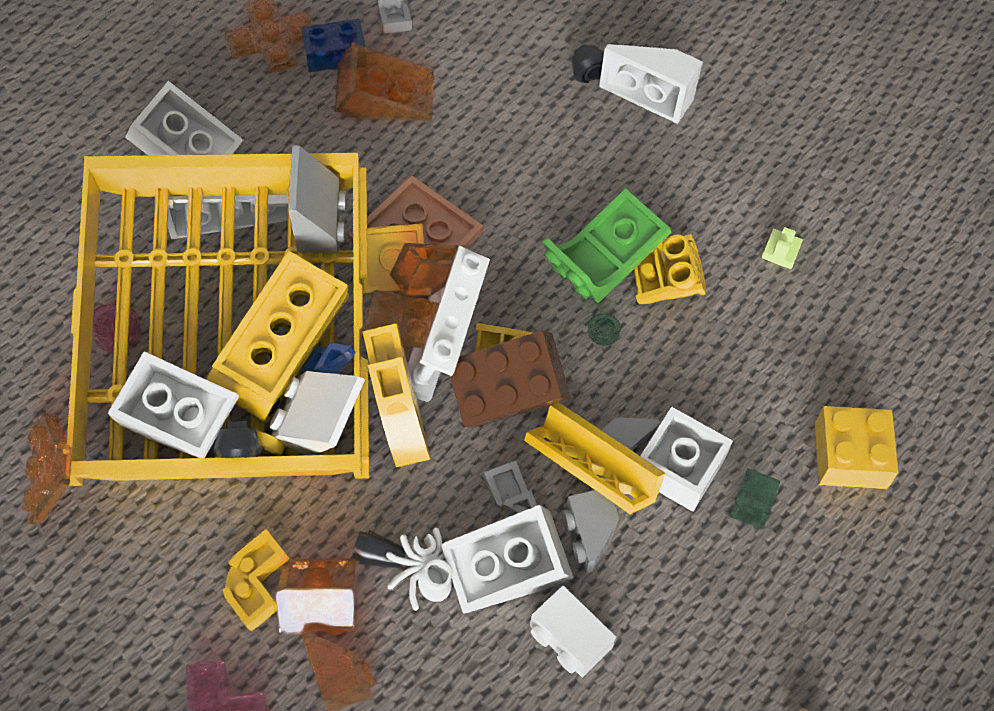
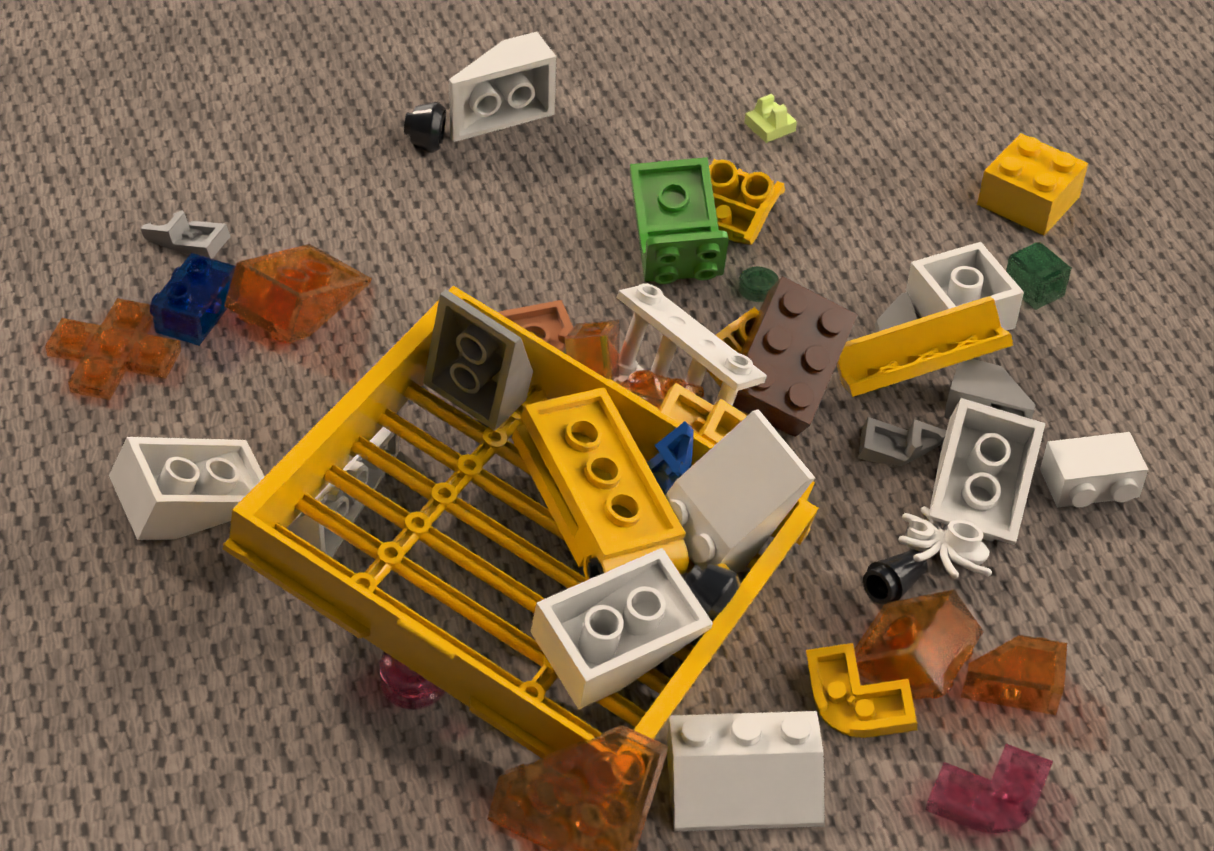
camera: 55 degrees left, 15 degrees down
(145, 546) = (746, 771): none -> white slope

